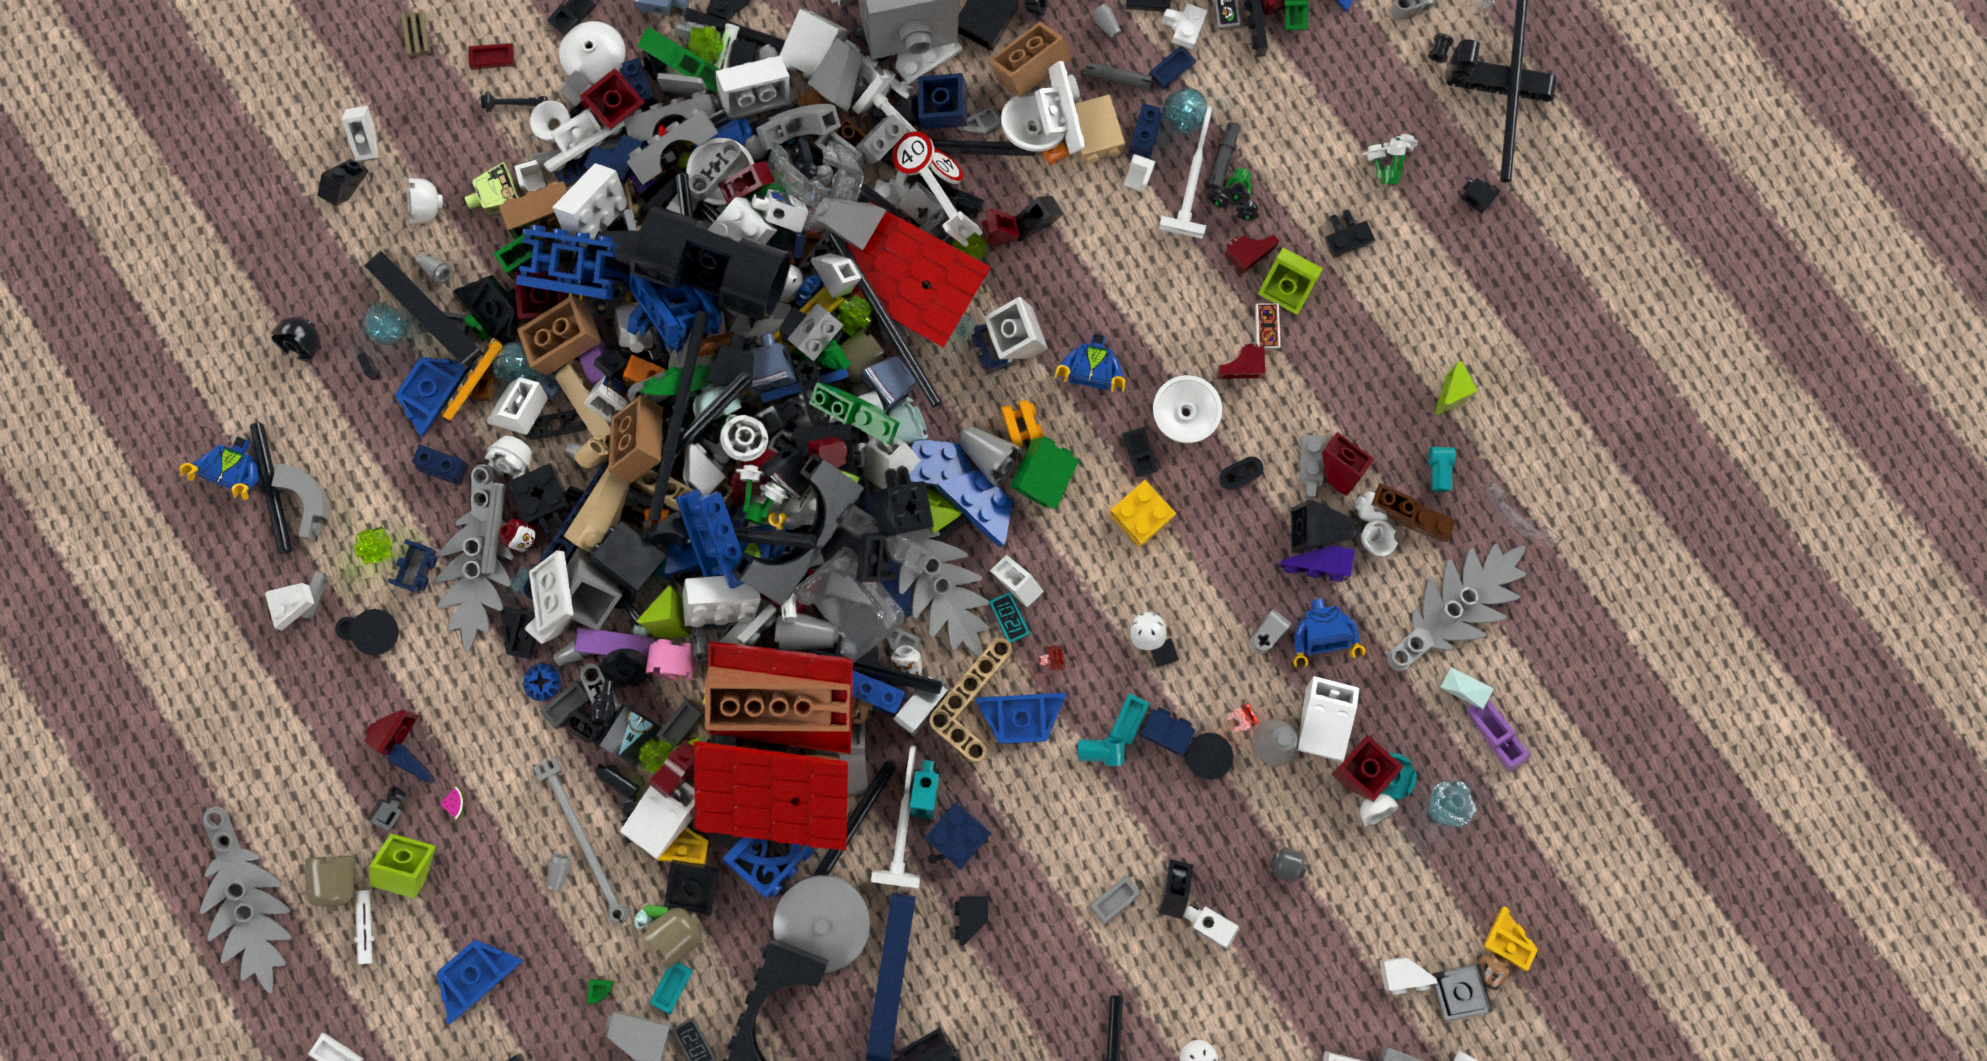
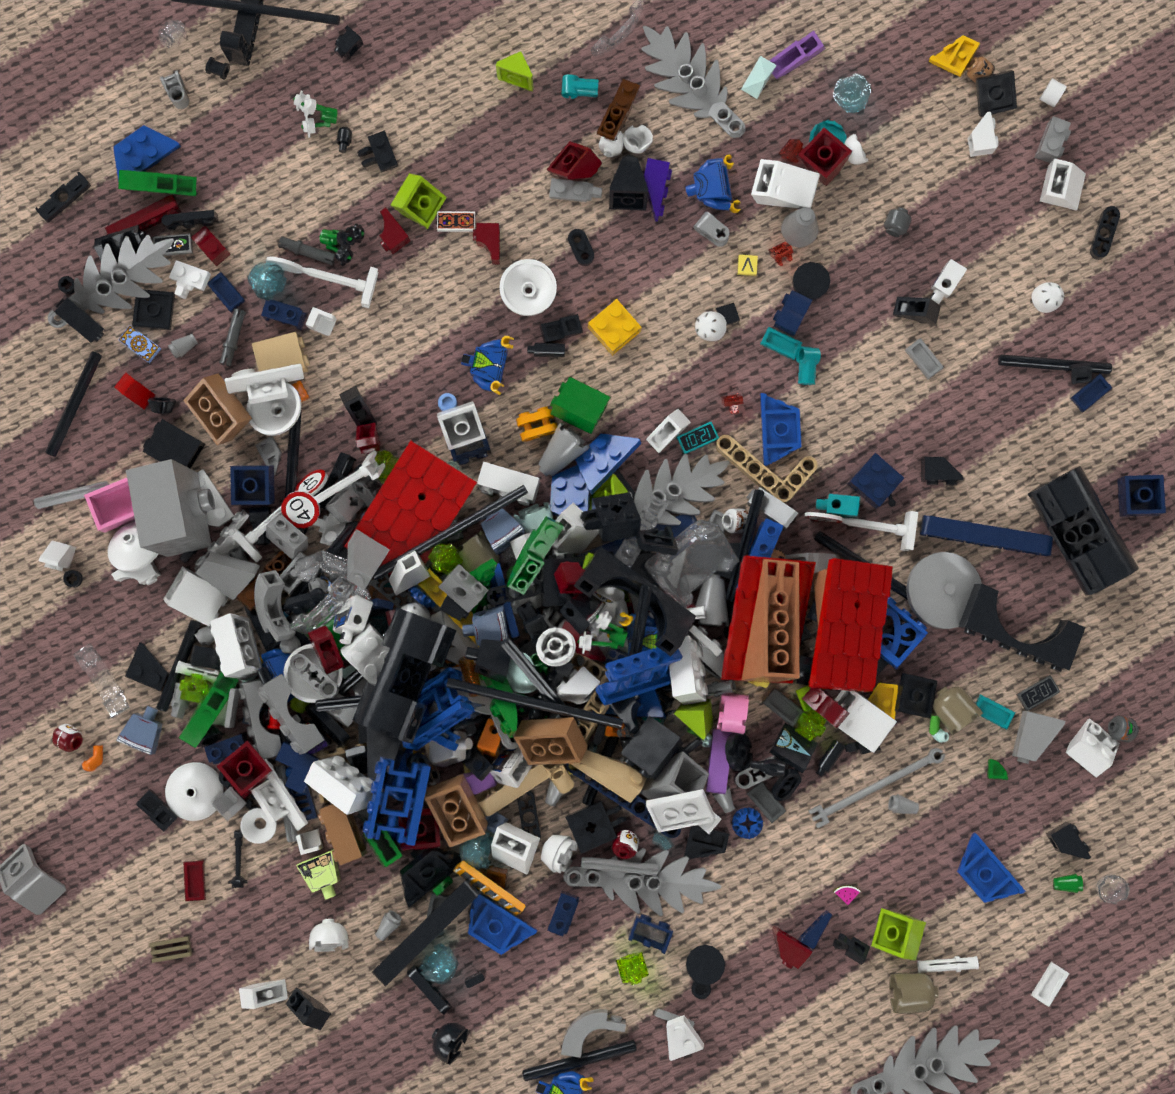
camera: 85 degrees left, 5 degrees up
(354, 318) = (430, 992): none -> black beam
(750, 343) = (469, 643): black bush -> none
(949, 384) = (503, 481): none -> white brick
(1047, 321) = (447, 401): none -> light blue tile
(1113, 436) = (547, 350): none -> black cylinder
(1225, 47) = (210, 246): none -> dark red arch
(1226, 676) = (747, 265): none -> light yellow tile
(1363, 194) = (344, 138): none -> black cylinder
(1376, 729) = (790, 150): none -> clear red tile

